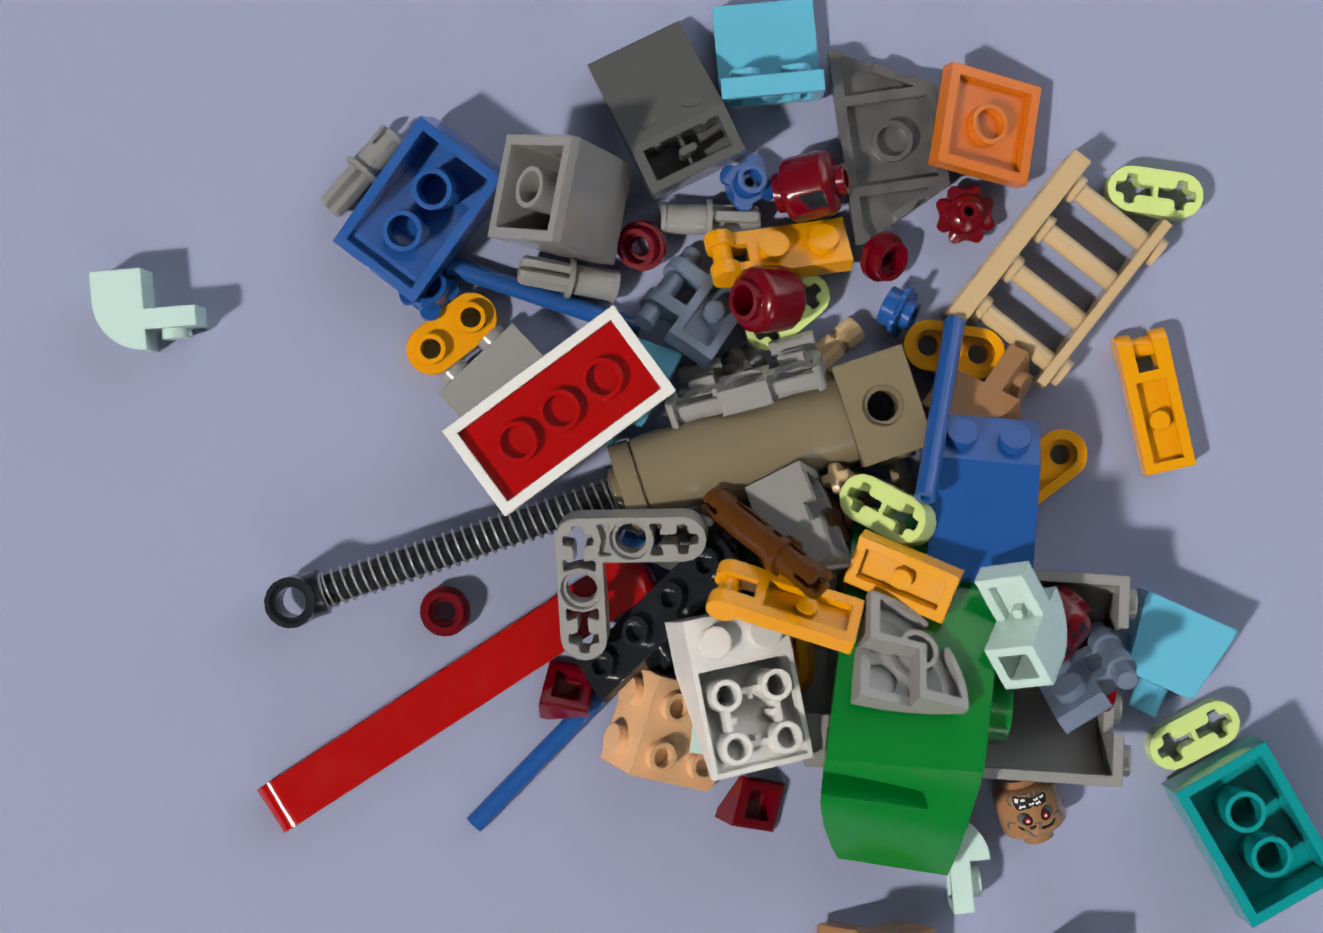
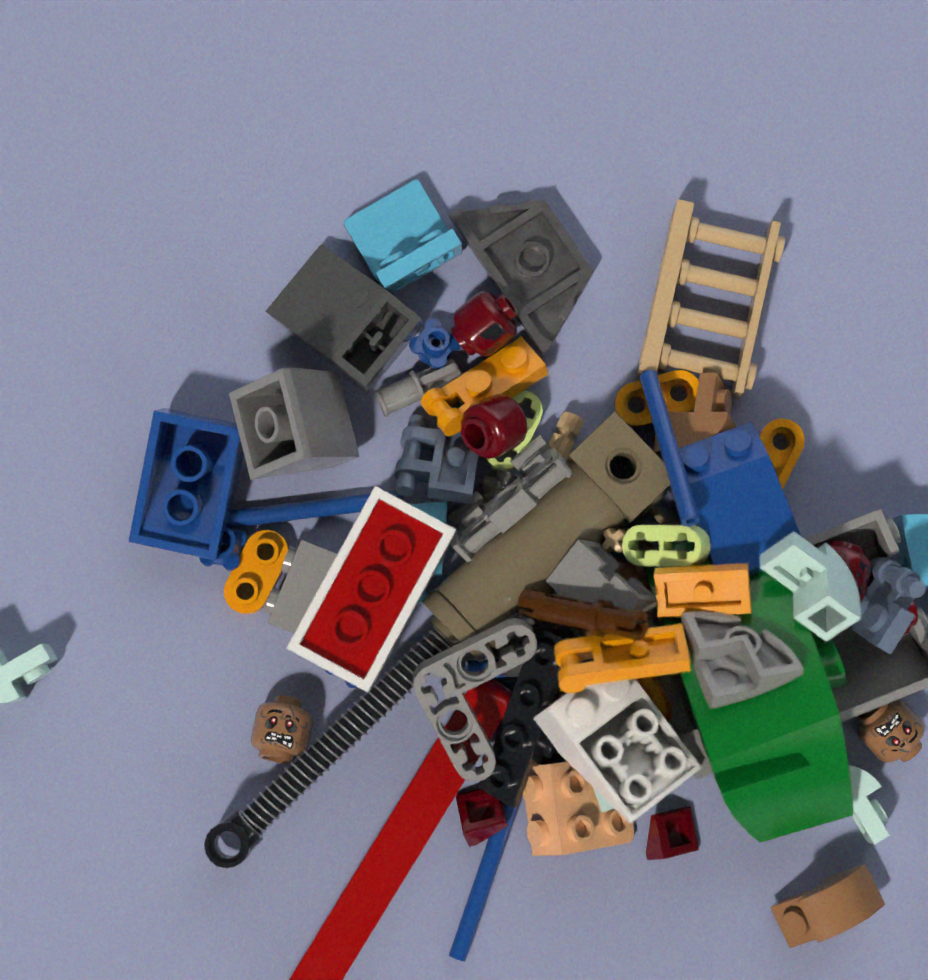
camera: 25 degrees left, 5 degrees down
(362, 171) = (126, 476): light grey axle -> none
(402, 509) = (281, 730): none -> medium nougat head
(429, 614) = (339, 800): dark red plate -> none
(569, 278) = (329, 484): light grey axle -> none
(630, 250) = (366, 439): dark red plate -> none
(884, 257) = (569, 352): dark red plate -> none
(899, 310) = (600, 387): blue plate -> none
(965, 214) = (616, 289): dark red plant -> none
(985, 125) = (598, 213): orange plate -> none
(1153, 403) = (834, 366): light orange plate -> none
(1154, 181) = (752, 195): yellowish green beam -> none

